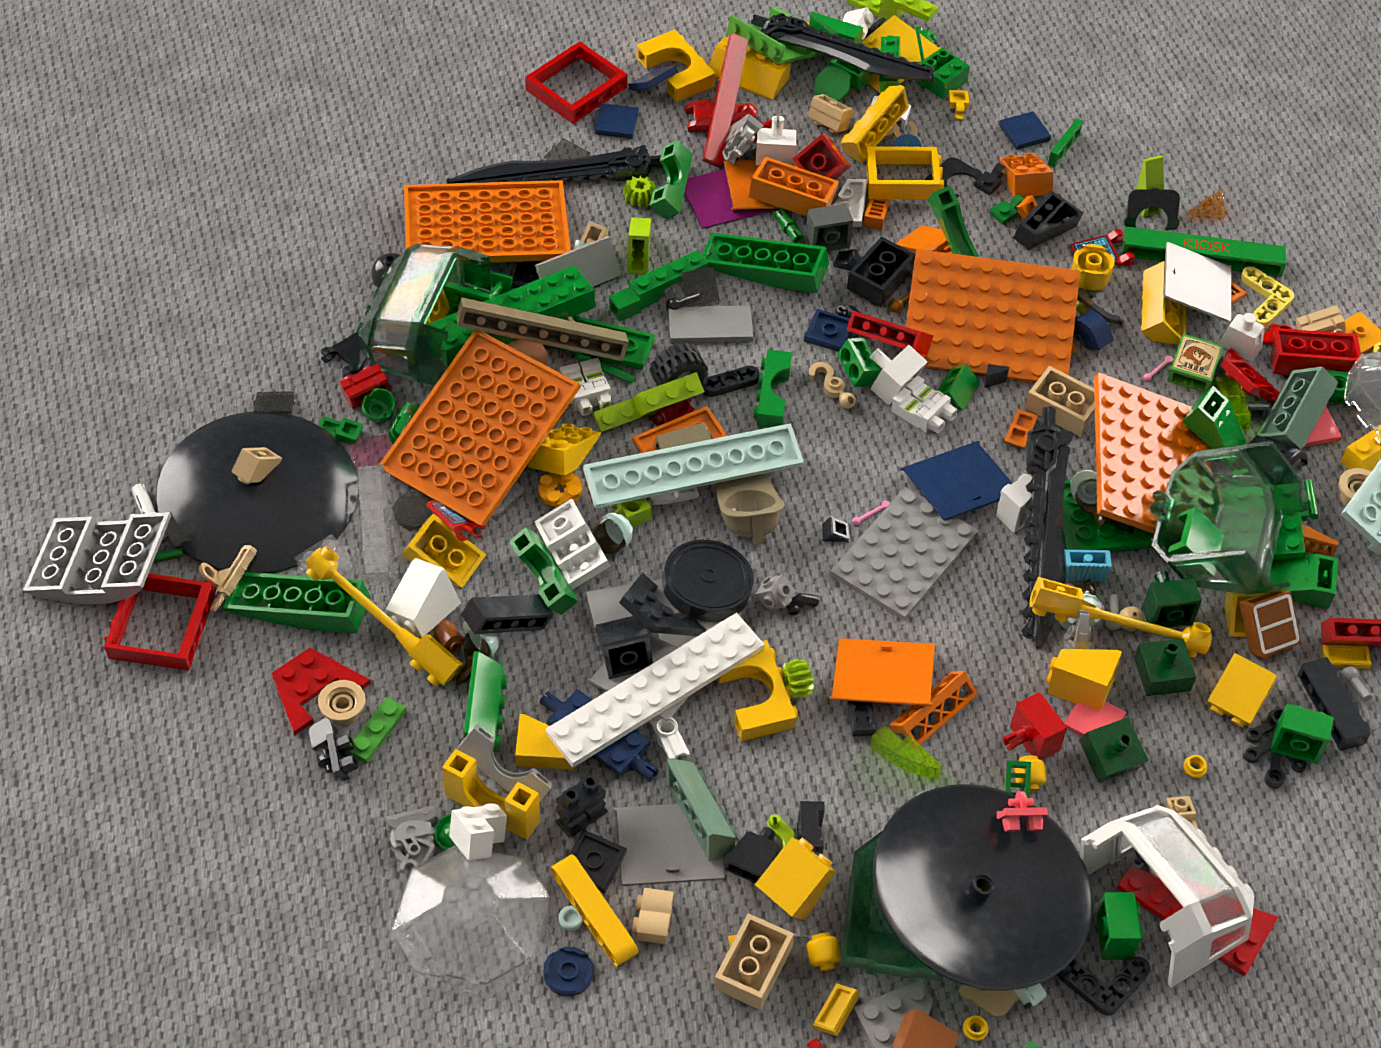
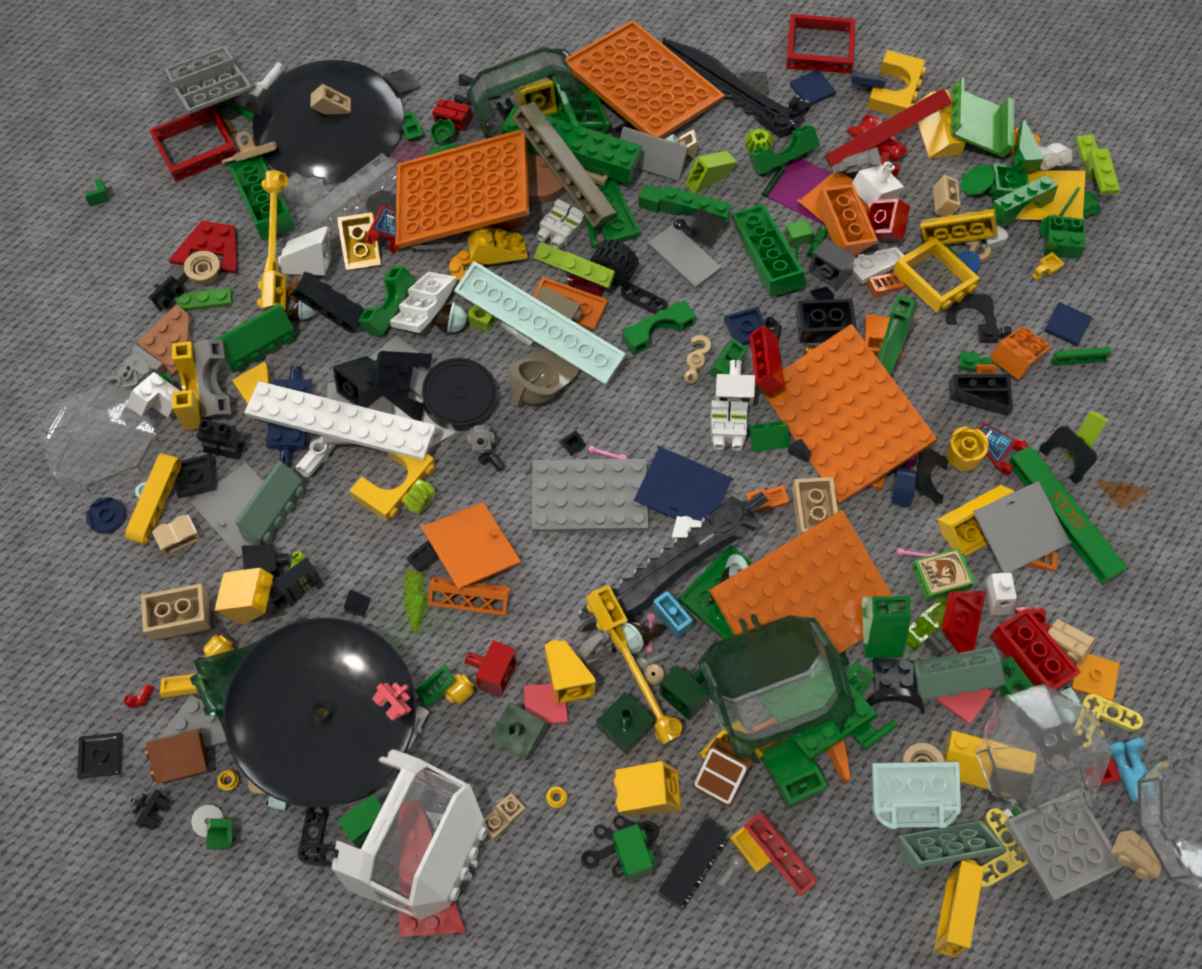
camera: 55 degrees right, 10 degrees up
(133, 748) = (99, 195): none -> green panel
(401, 786) = (169, 330): none -> nougat plate
(630, 139) = (799, 105): none -> black wheel
(692, 214) = (773, 181): none -> dark green piece
(769, 228) = (798, 233): none -> bright green brick
(866, 805) = (356, 603): none -> black slope
(870, 60) = (1005, 179): black piece -> none
(1198, 534) = (743, 675): panel -> none
(1273, 299) = (1068, 593): light yellow beam -> none

